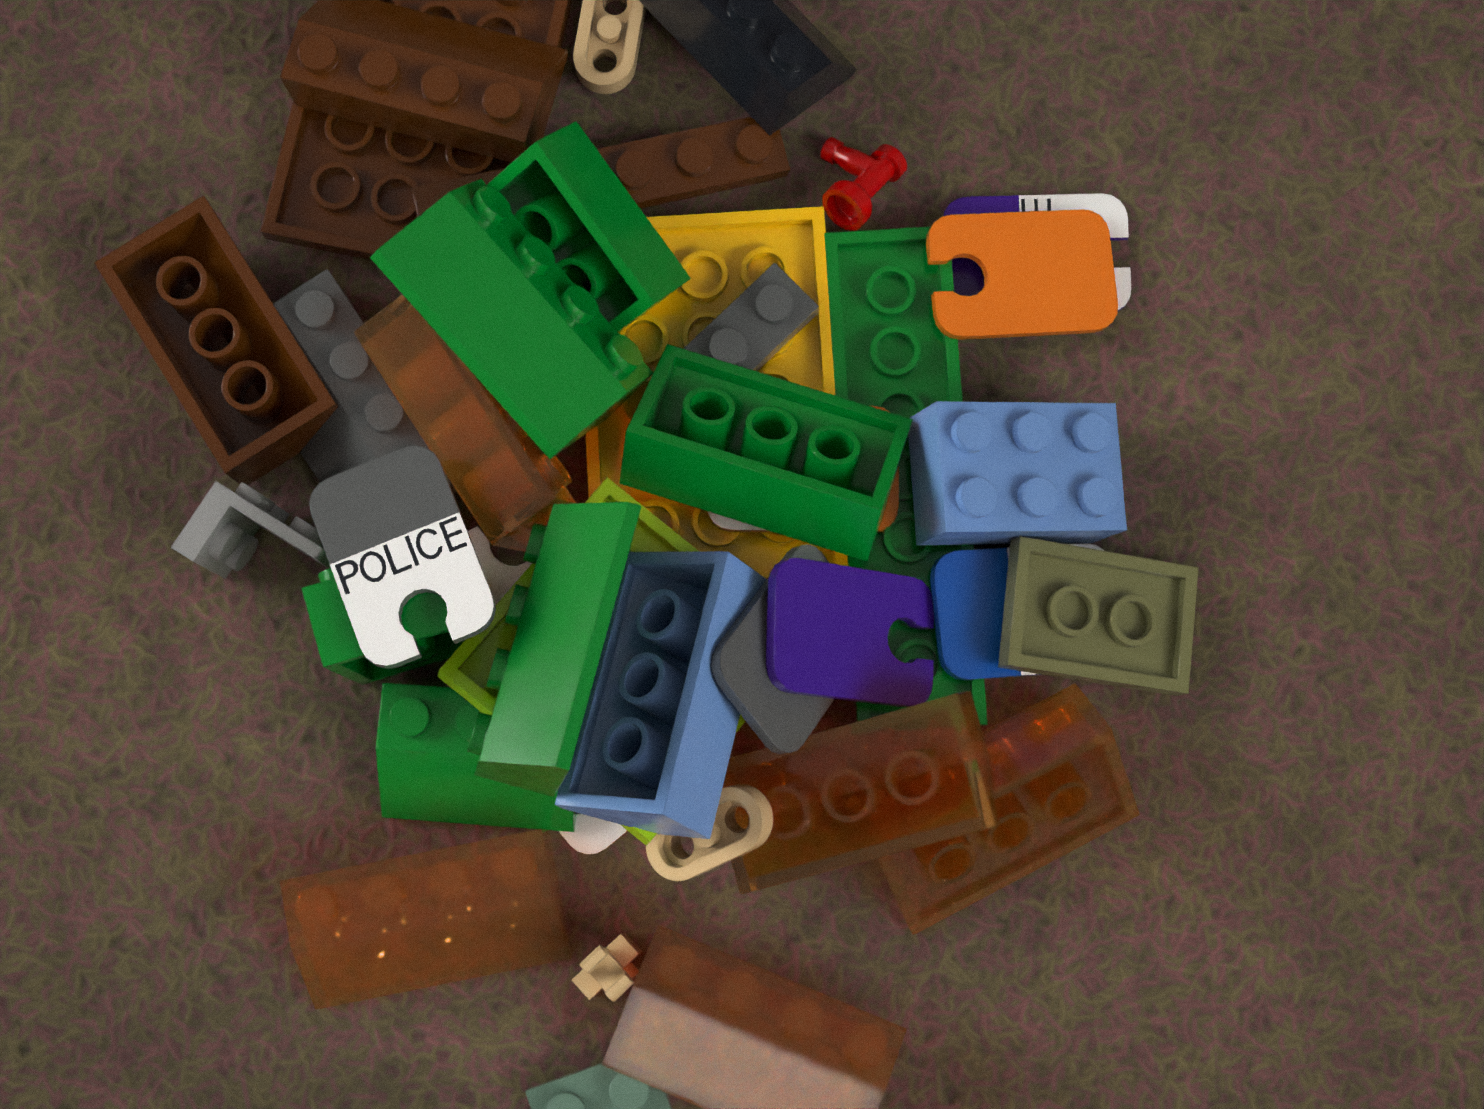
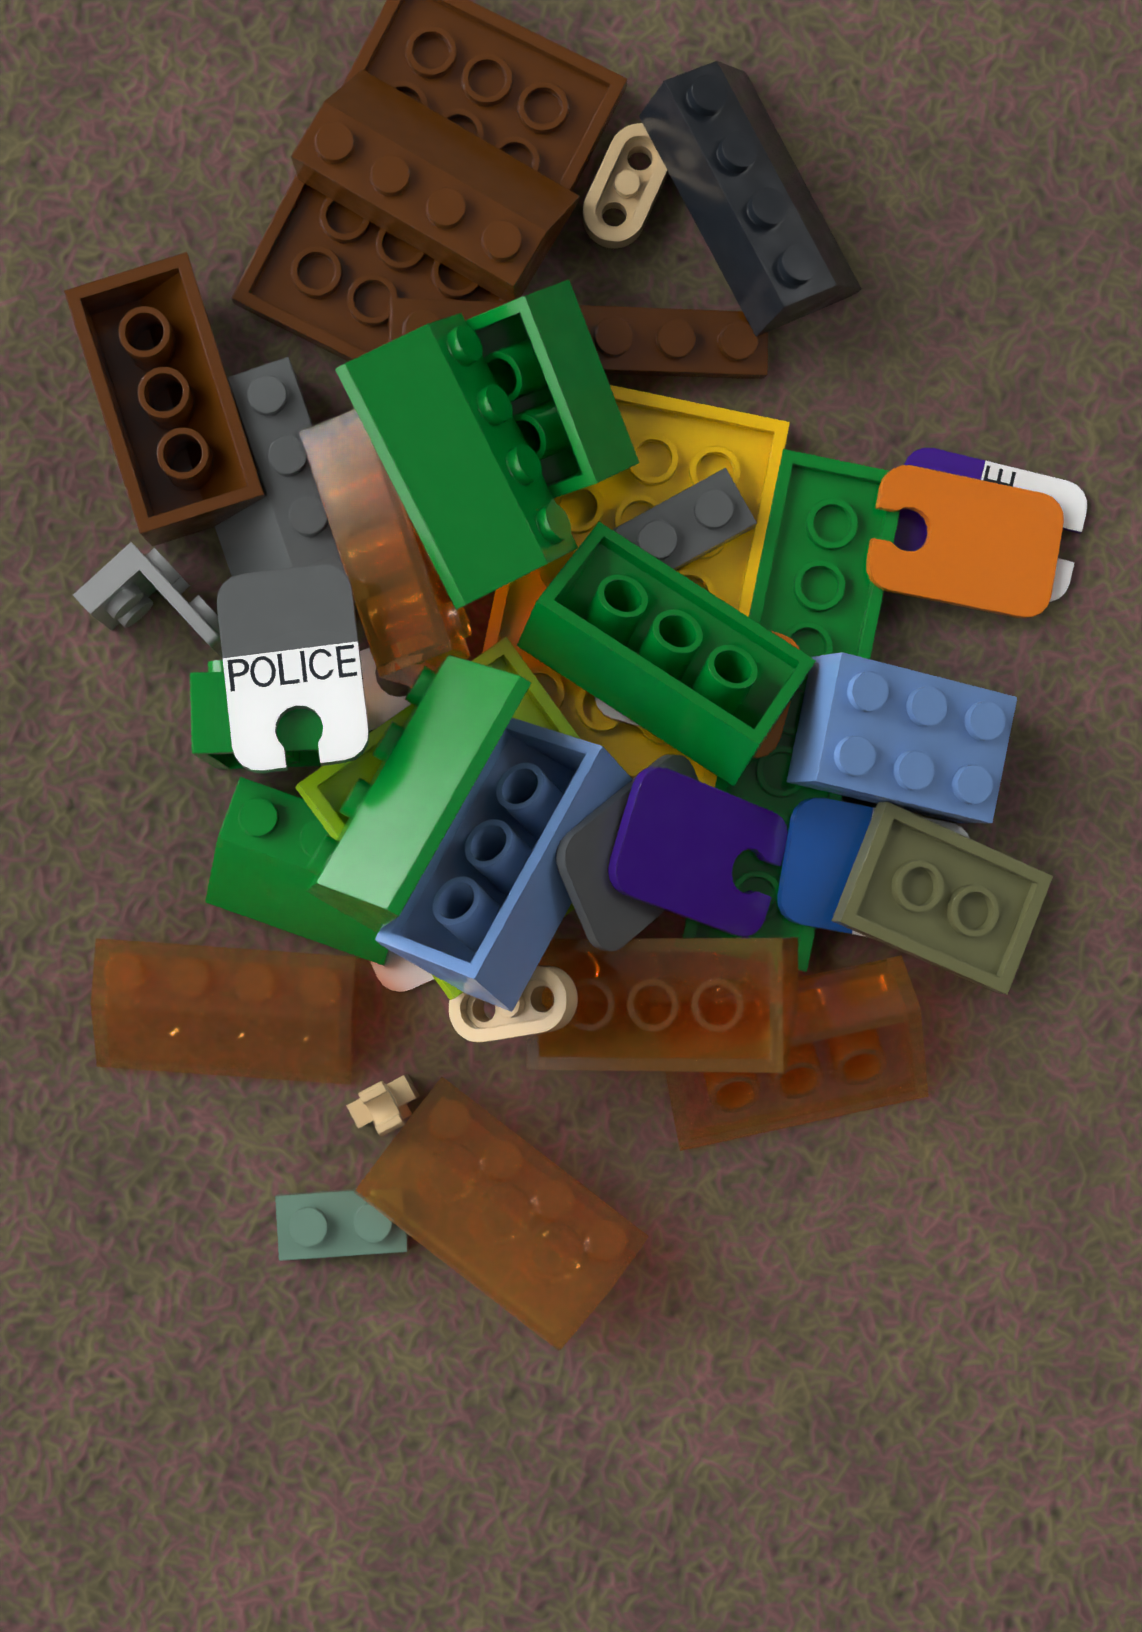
camera: 10 degrees right, 5 degrees up
(849, 201) = (817, 425): red piece -> none

